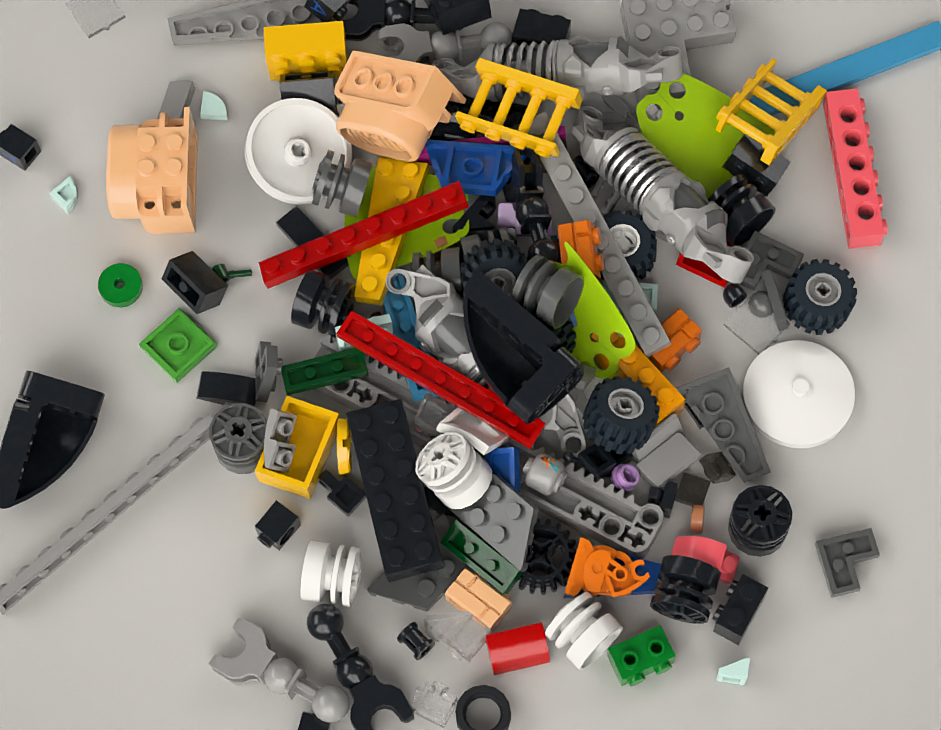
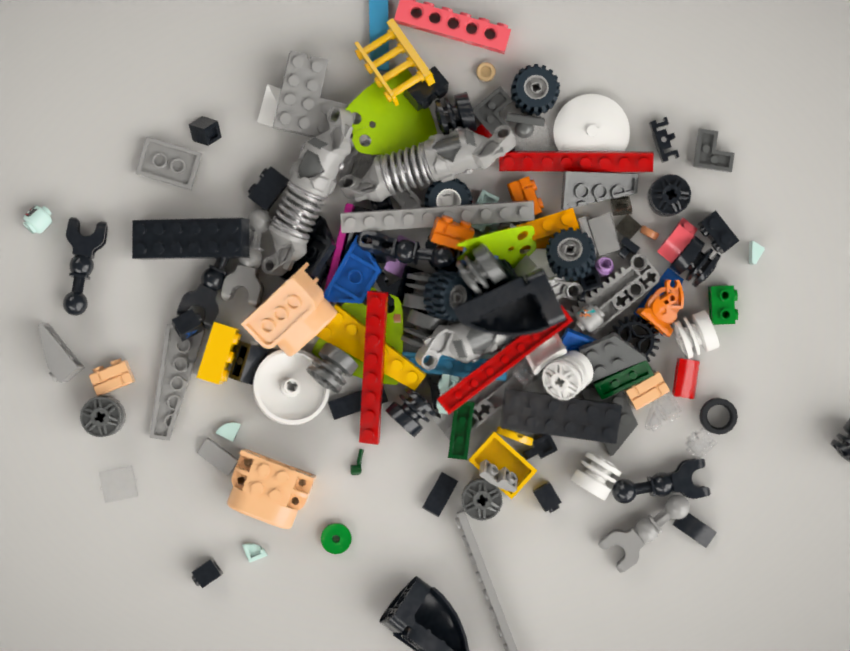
camera: 70 degrees left, 20 degrees up
(178, 345) = (394, 515): bright green tile -> none
(194, 282) = (358, 489): black brick -> none
(266, 367) = (442, 465): dark grey plate -> none
(415, 641) = (656, 439): black bush -> none
(518, 81) = (315, 226): yellow fence -> none
(751, 386) = (577, 161): none -> red plate
(813, 233) = (485, 72): none -> tan tile
(831, 484) = (662, 146): none -> black piece

